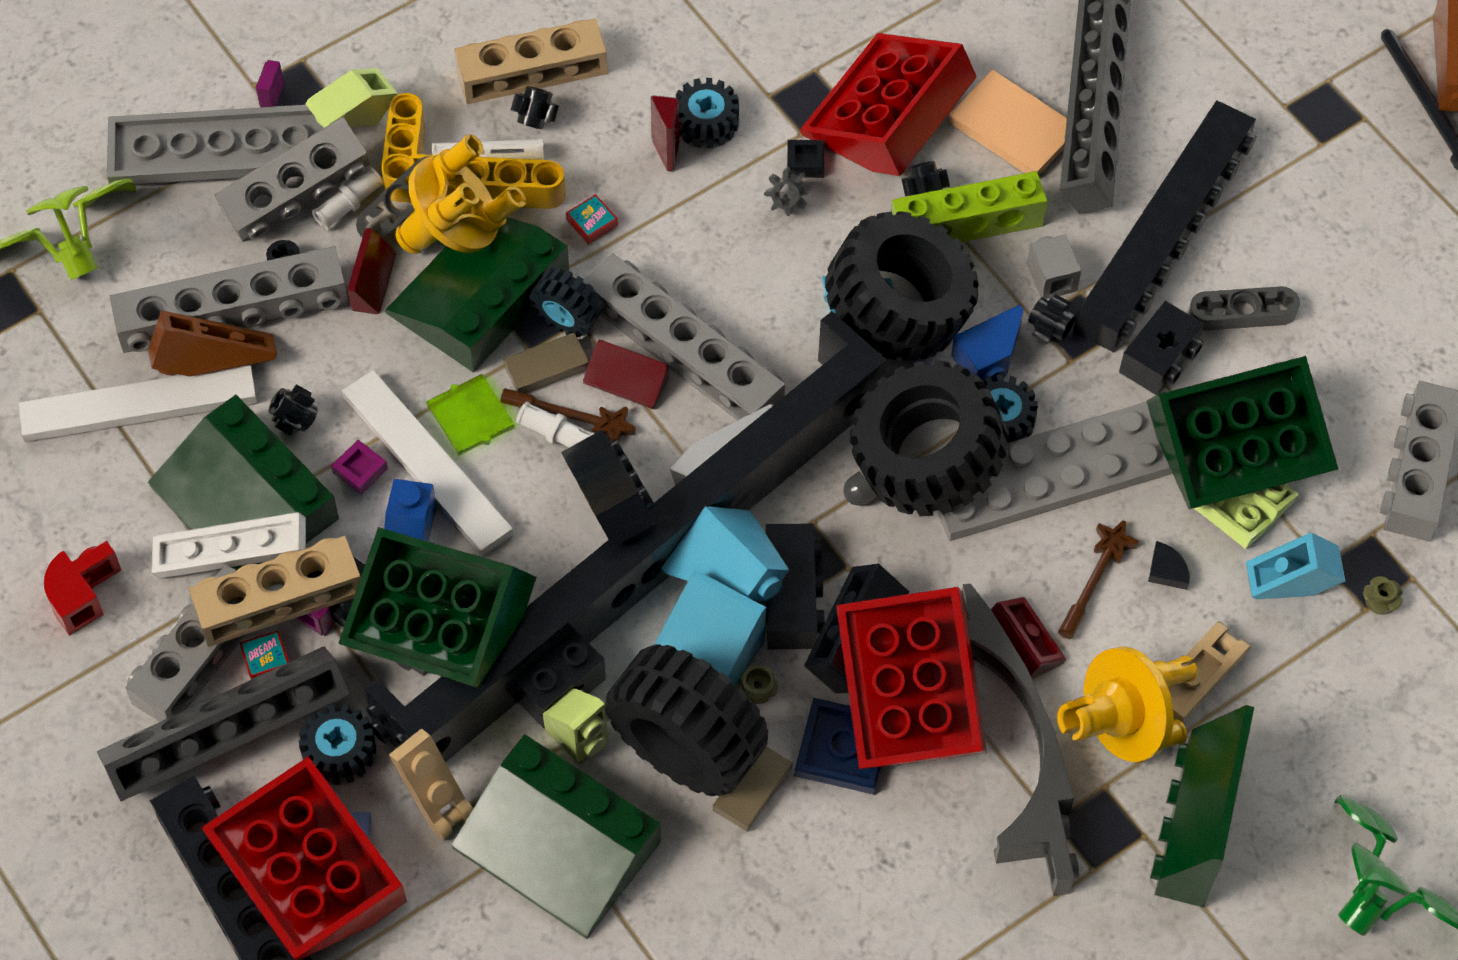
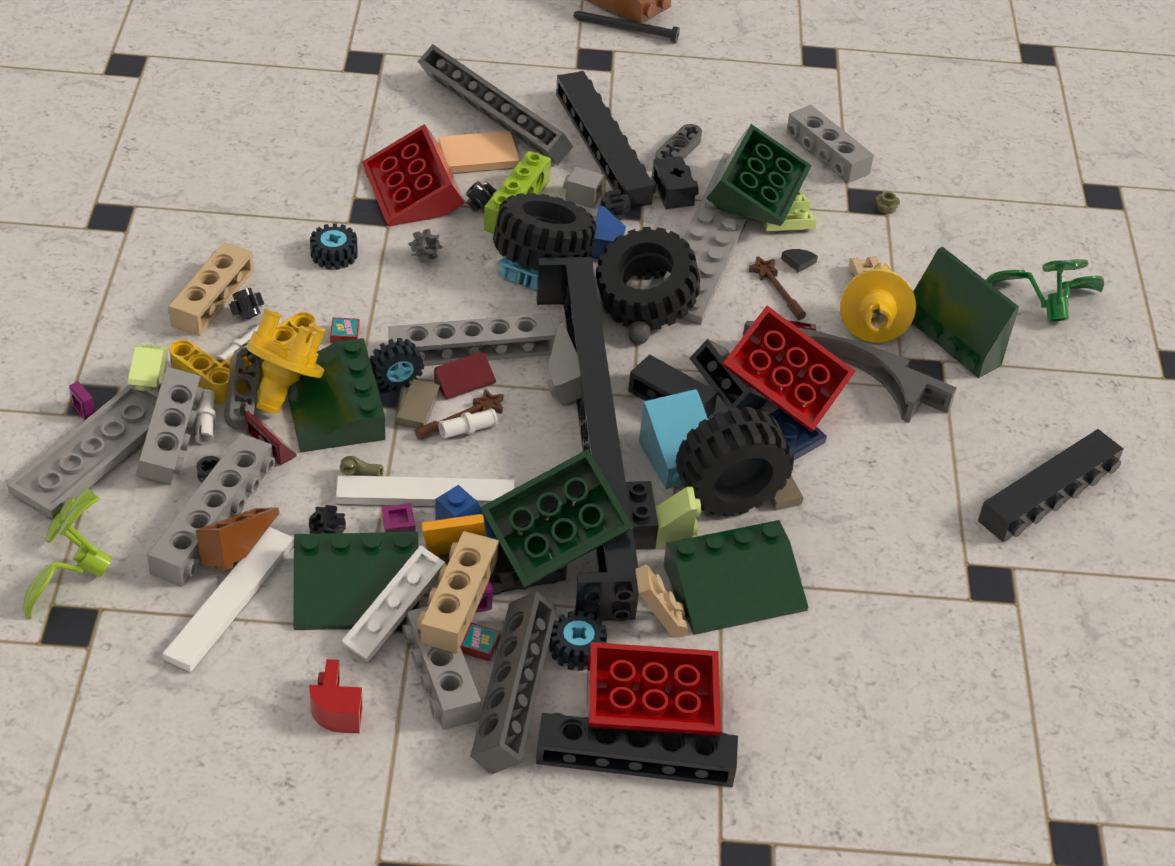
camera: 55 degrees left, 15 degrees down
(343, 523) = (442, 533): none -> light orange tile
(402, 381) = (355, 467): none -> olive arm
(470, 414) = (413, 456): clear neon green piece -> none
(610, 487) = (549, 408): black brick -> none
(665, 129) = (333, 260): dark red slope -> none
(730, 550) = (635, 387): medium azure slope -> none
(806, 157) = (404, 231): black tile -> none
(1296, 569) = (847, 216): medium azure slope -> none

